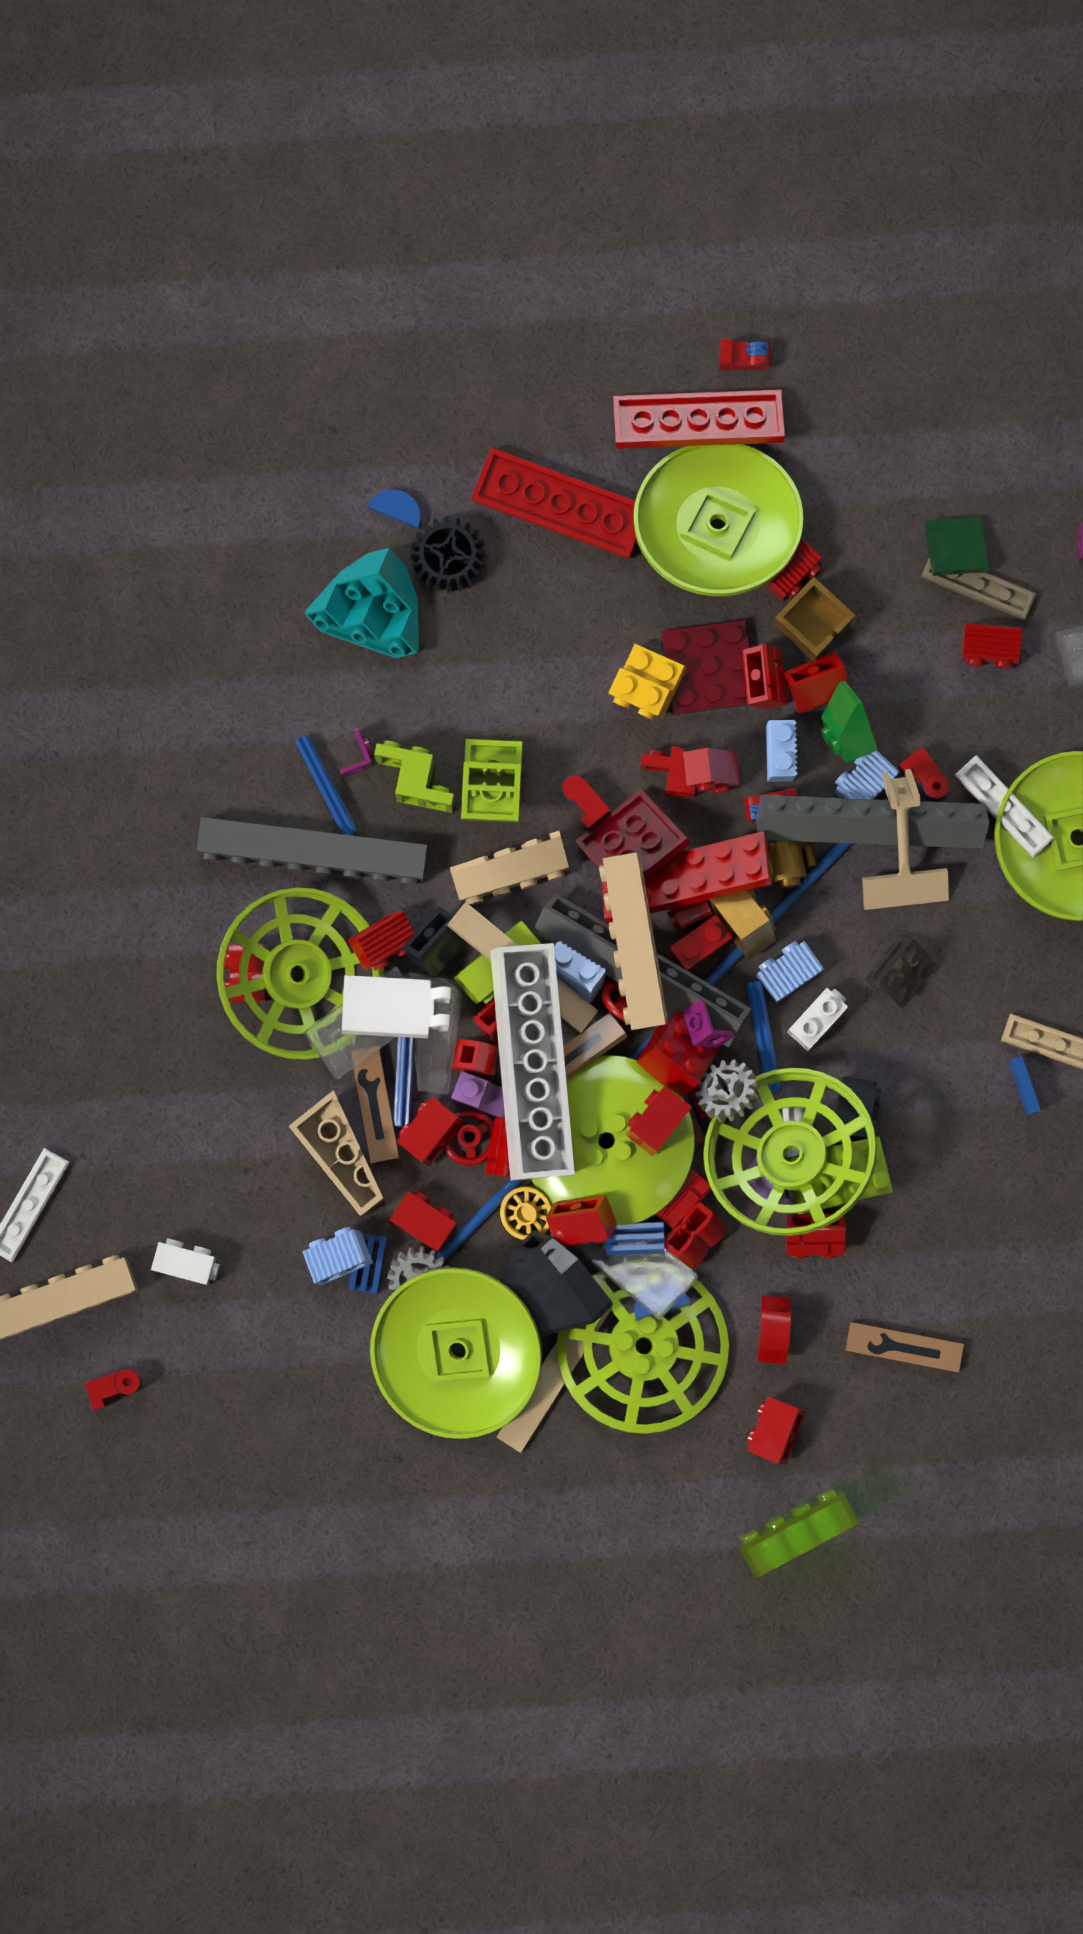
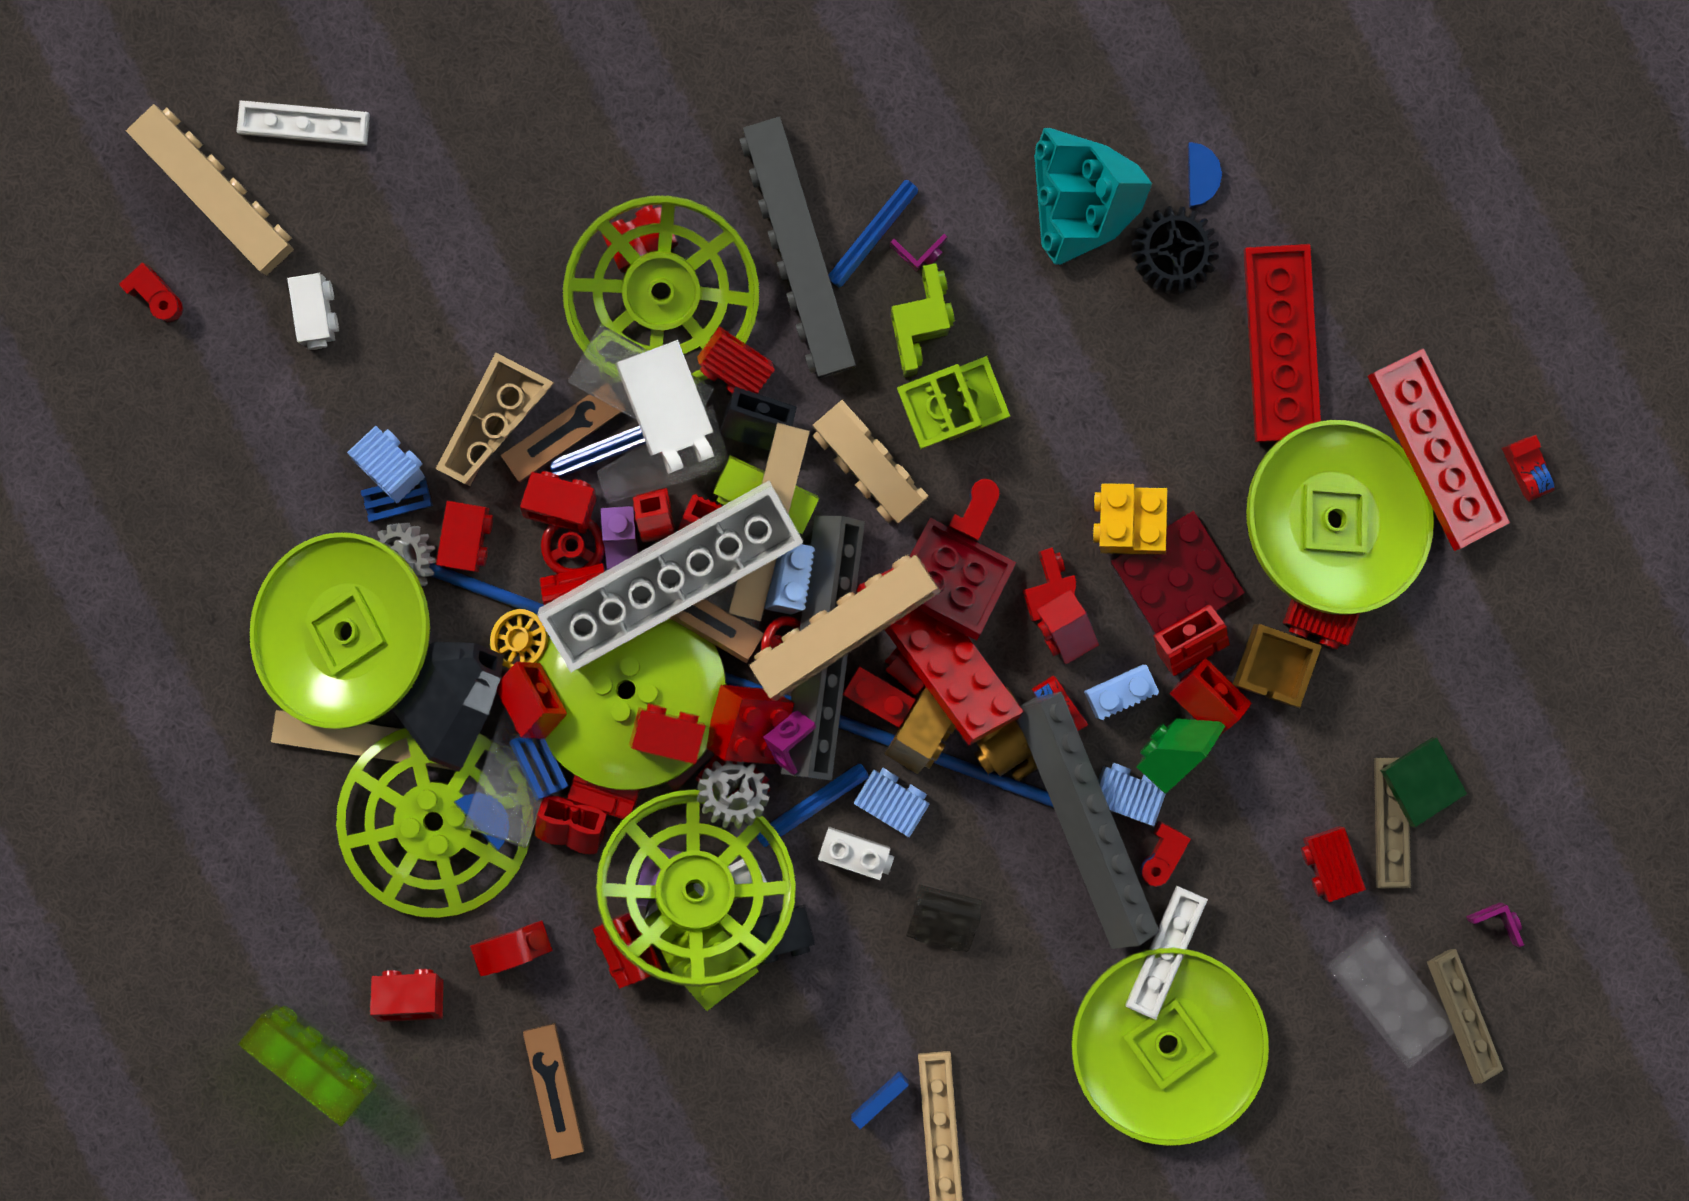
camera: 70 degrees right, 5 degrees up
(906, 886) = (1036, 885): tan piece -> none

